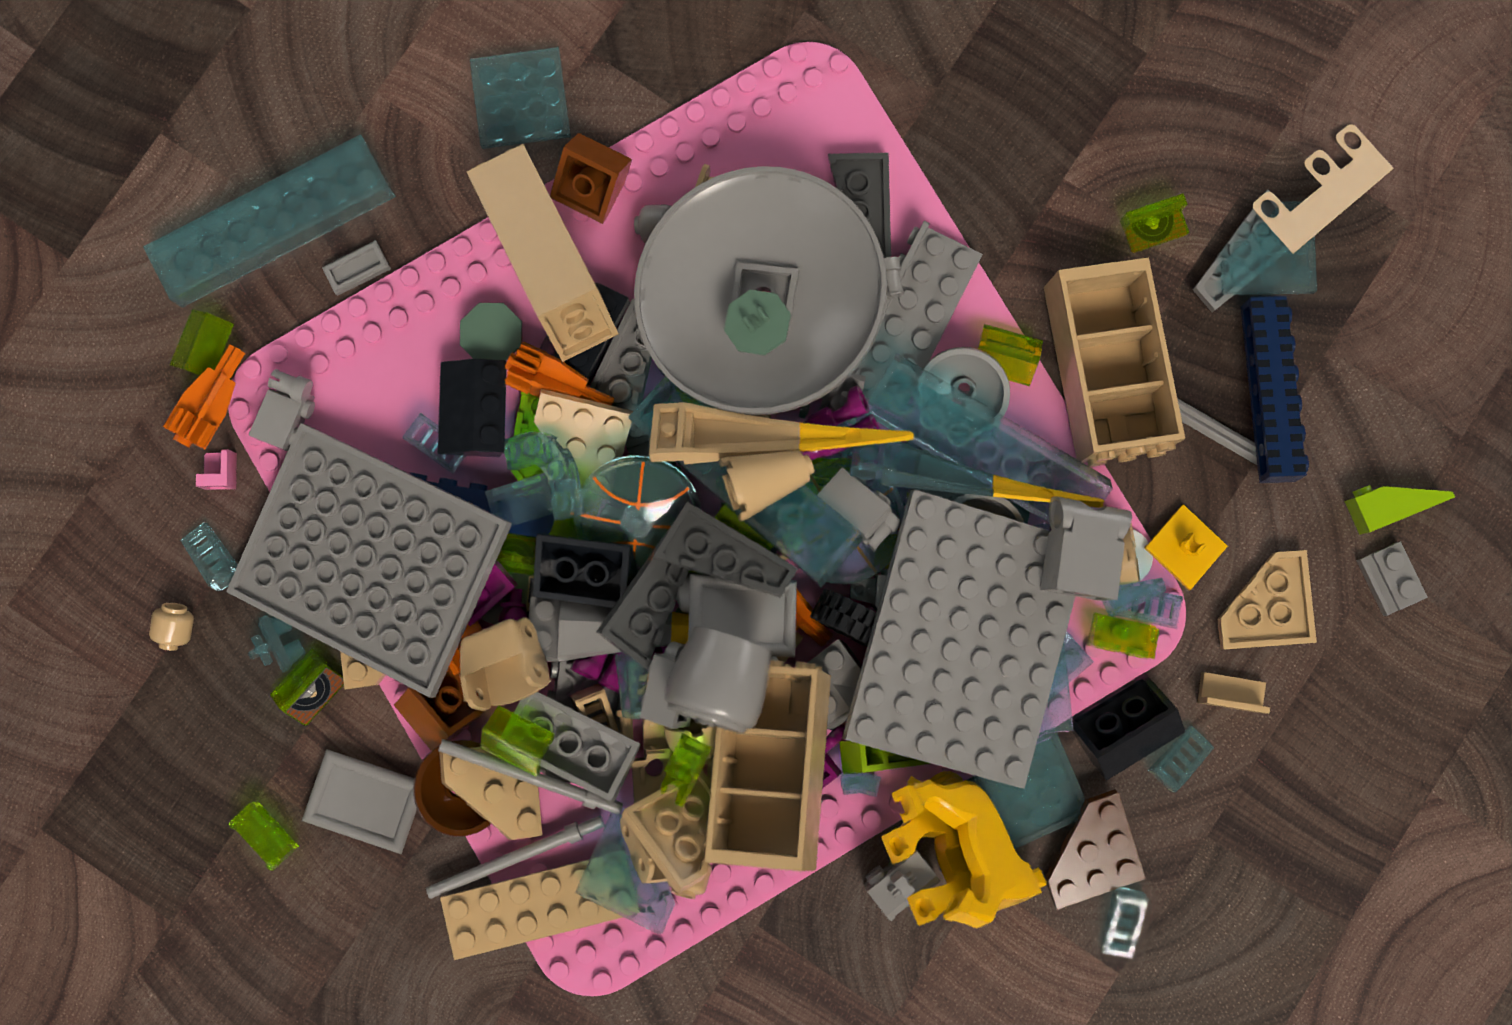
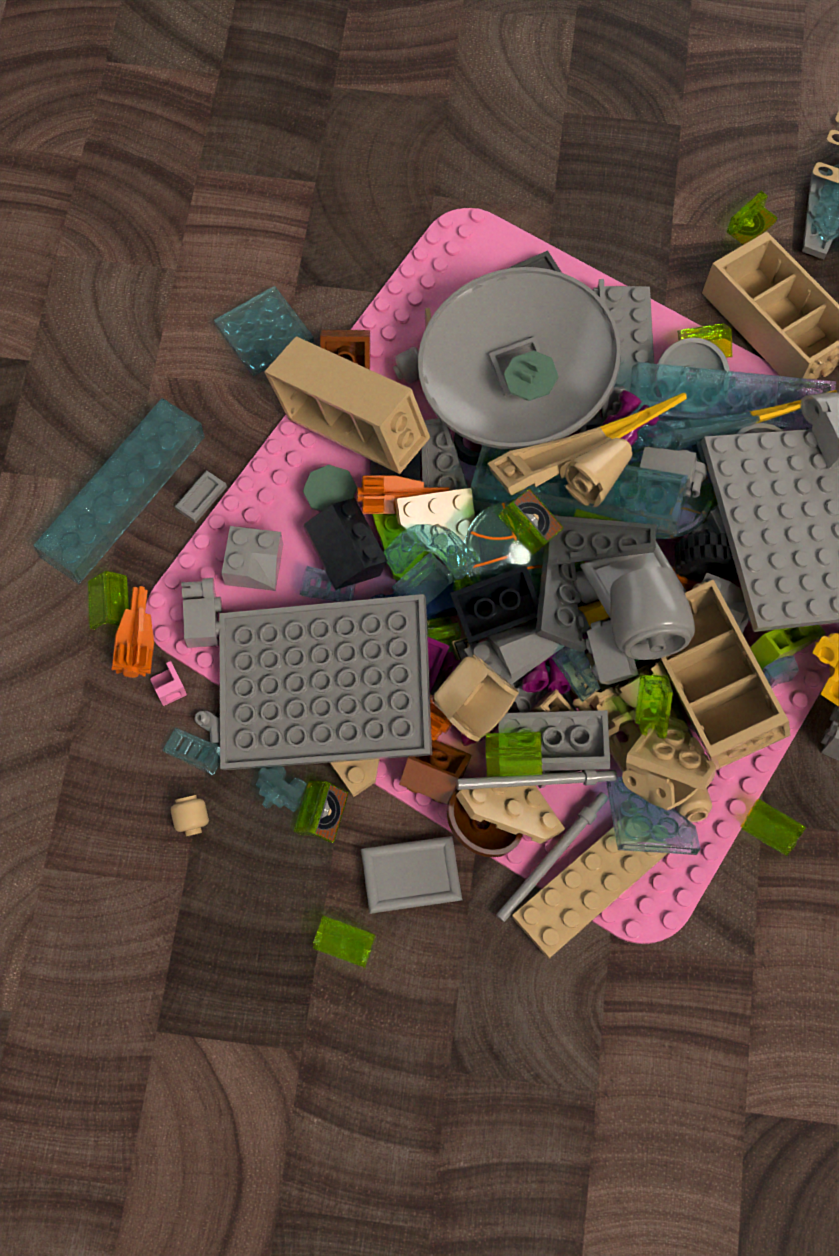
camera: 30 degrees left, 15 degrees down
(241, 531) = (211, 724): none -> light grey arm
(368, 374) = (252, 558): none -> light grey slope
(660, 501) = (530, 521): none -> panel
(760, 940) = (772, 827): none -> clear neon green hinge

